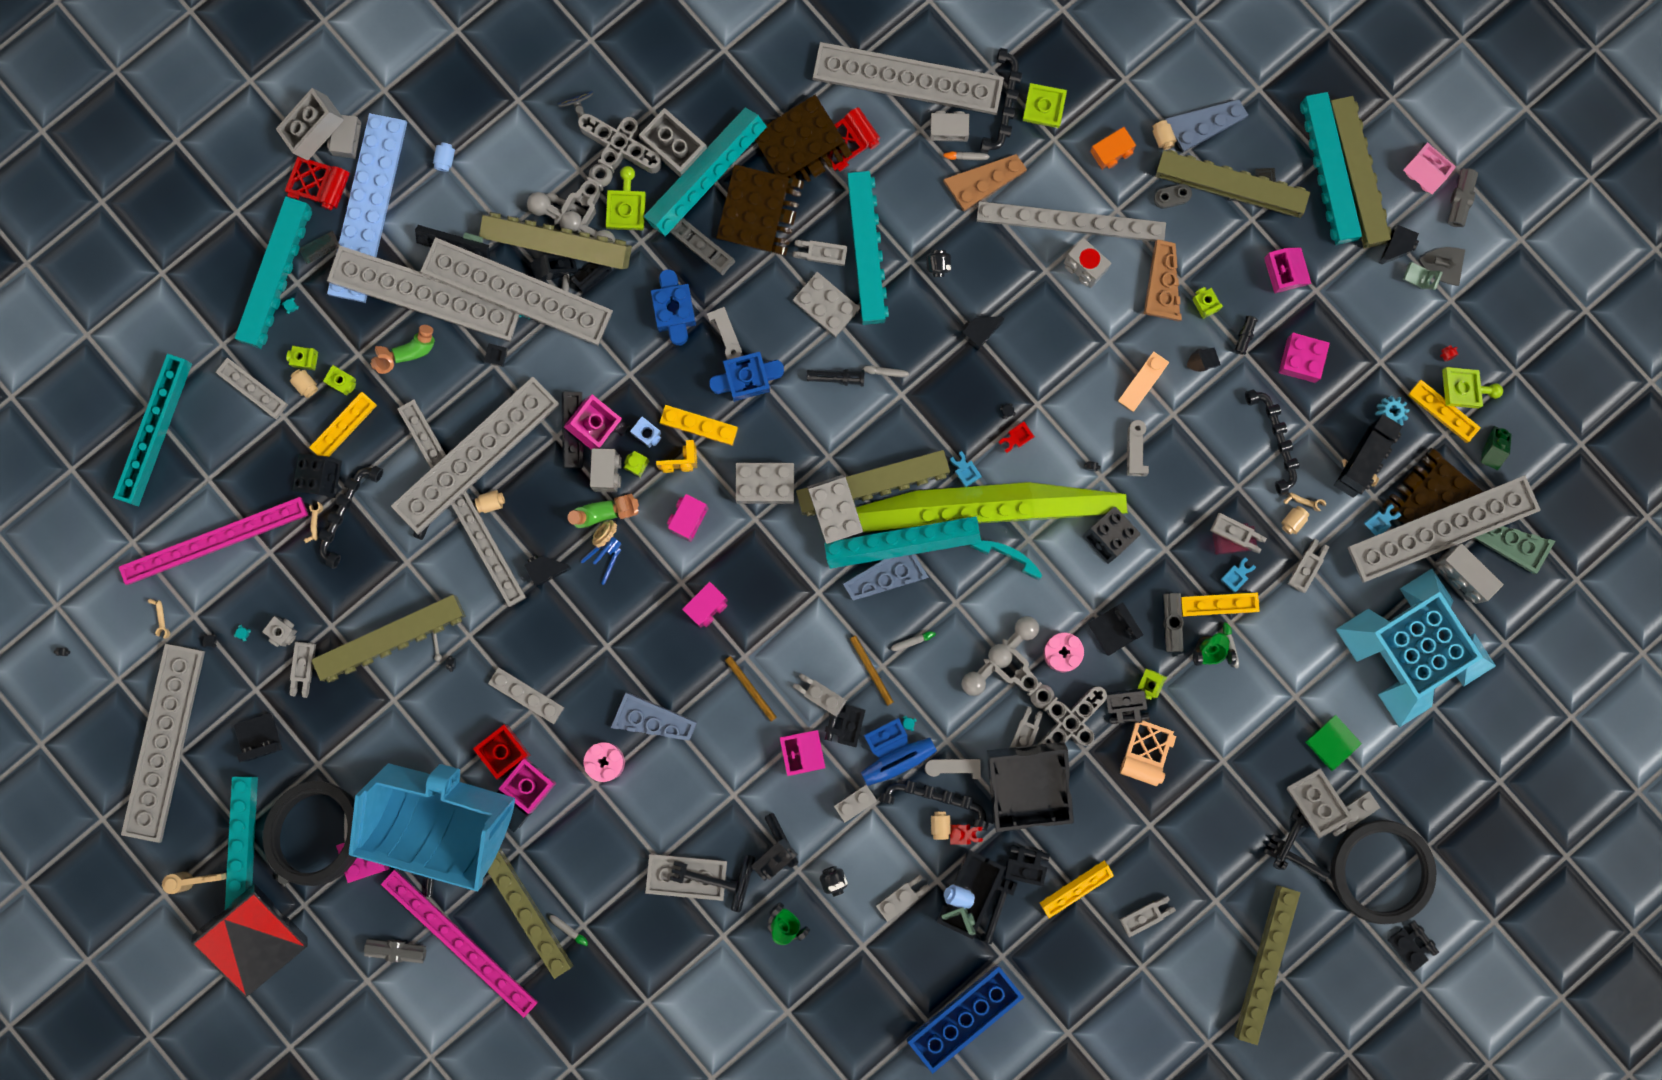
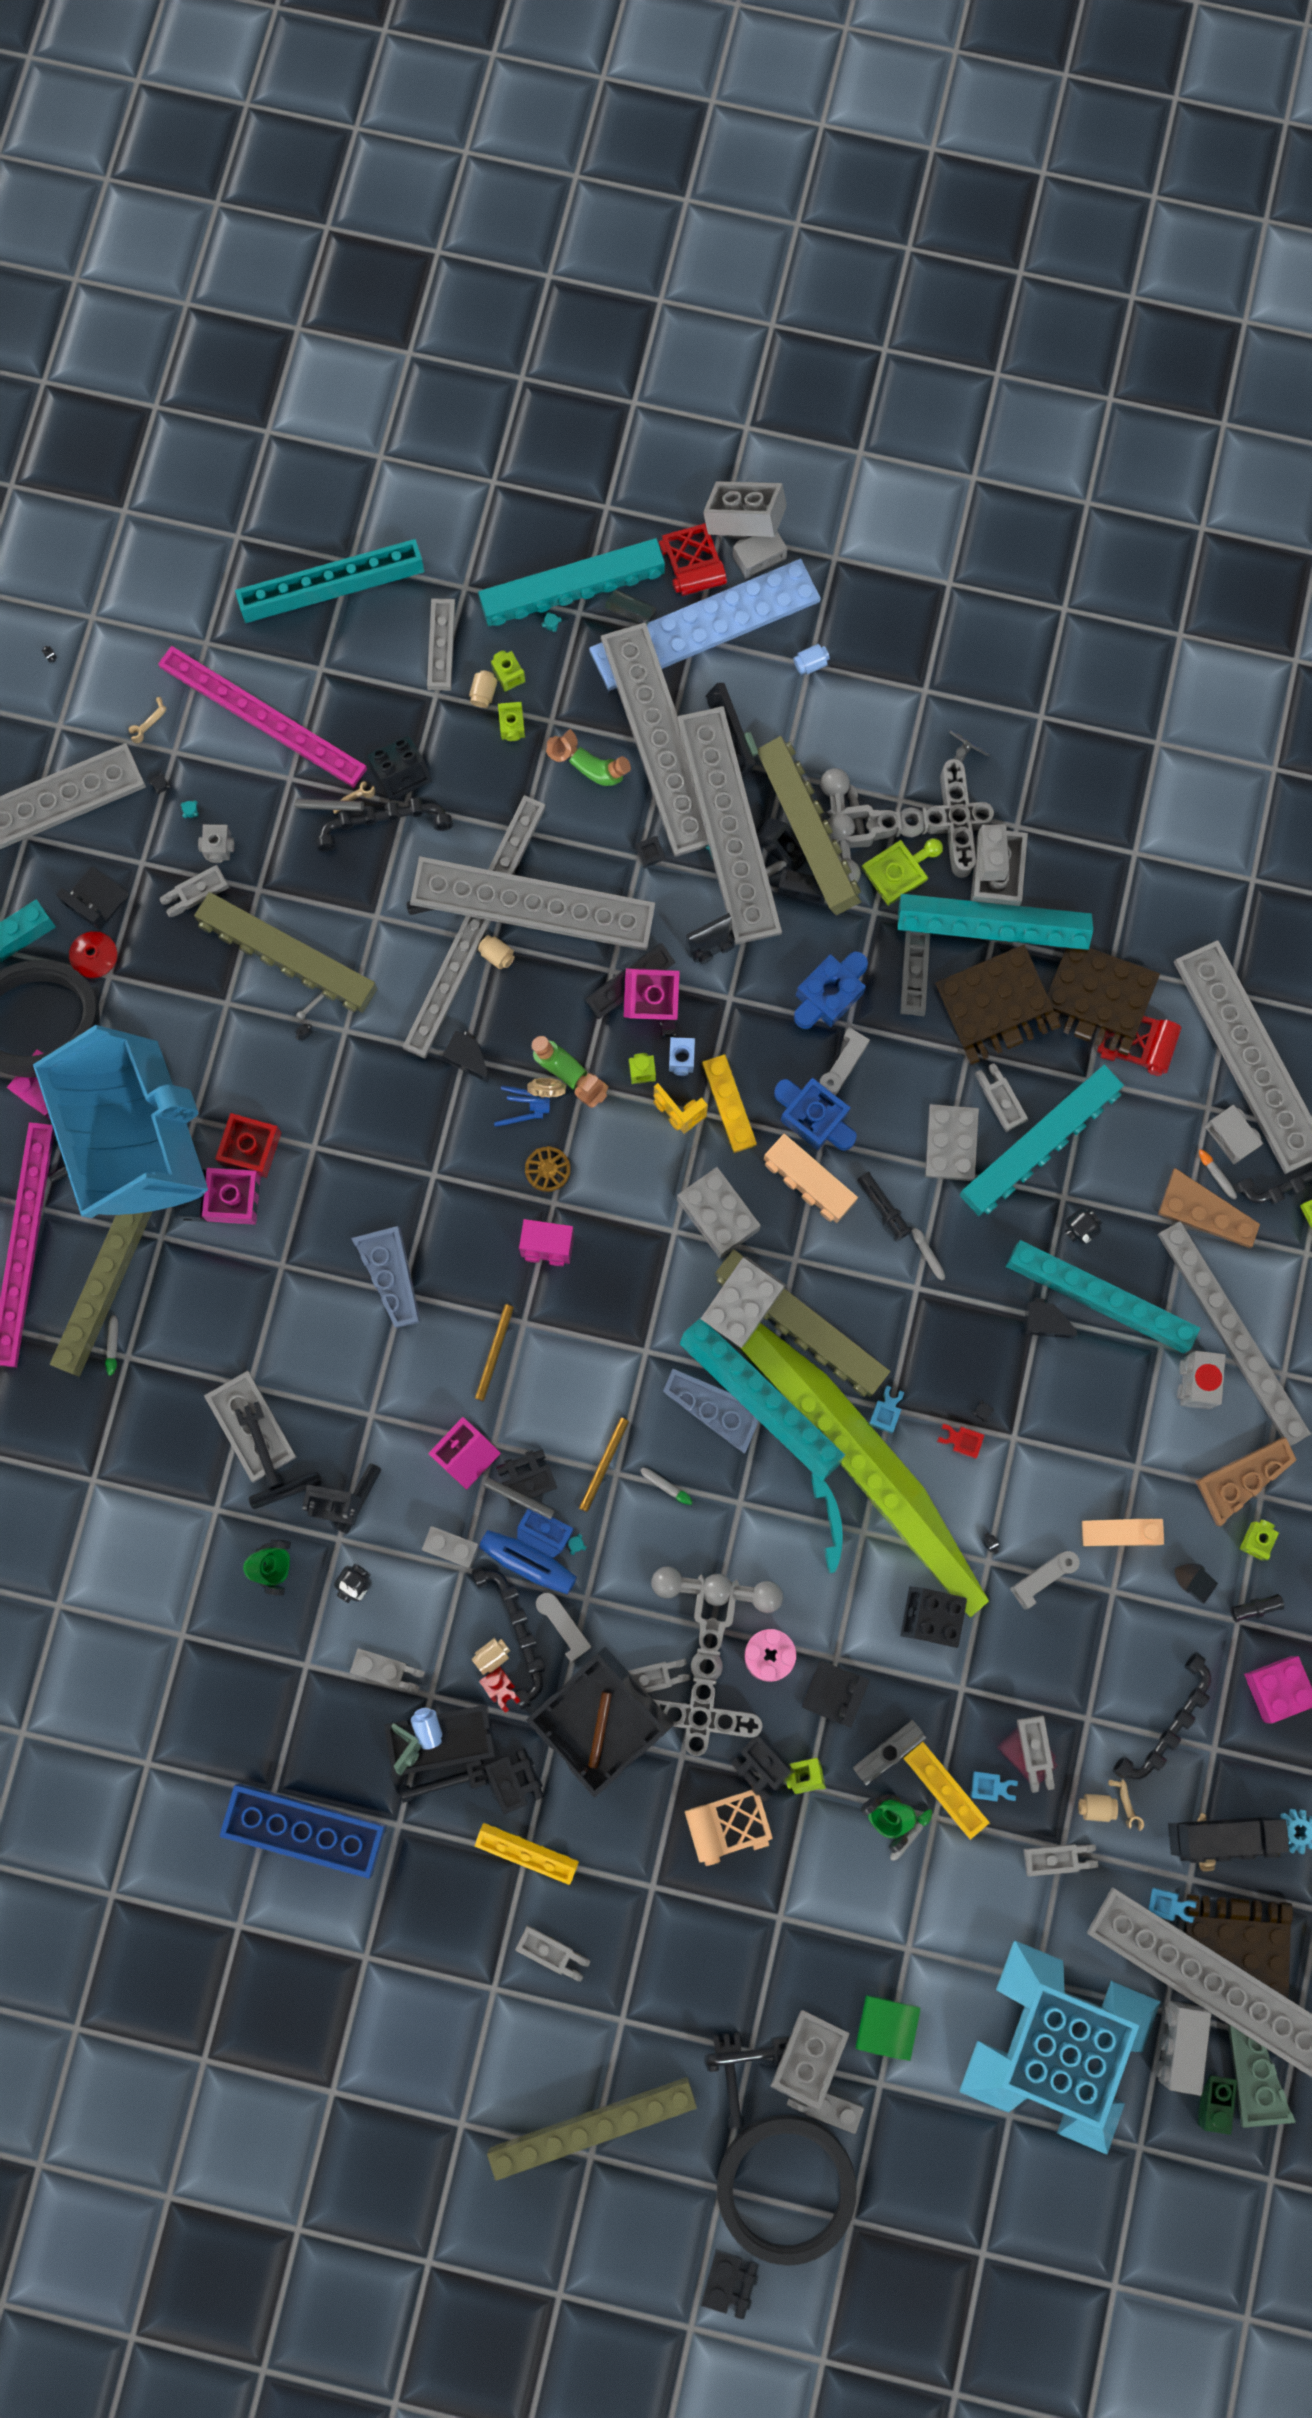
camera: 55 degrees right, 5 degrees down
(304, 761) = (100, 962): none -> red dish
(309, 539) = (329, 804): none -> dark grey bar
(343, 425) = (468, 757): yellow plate -> none
(526, 695) = (324, 1130): light grey plate -> none
(584, 359) = (710, 940): none -> black slope
(594, 767) = (298, 1250): bright pink brick -> none
(605, 470) = (611, 1041): light grey brick -> none
(657, 570) = (547, 1169): none -> pearl gold wheel
(662, 139) = (993, 852): none -> light grey brick
(687, 517) = (624, 1158): dark pink brick -> none
(785, 409) = (810, 1179): none -> light nougat brick
(821, 696) = (539, 1431): light grey hinge -> none
(855, 738) = (519, 1498): none -> dark grey bar
(991, 284) = (1103, 1297): none -> teal brick
(1034, 790) = (600, 1729): none -> reddish brown bar
(1514, 579) = (1217, 2105): none -> dark green slope

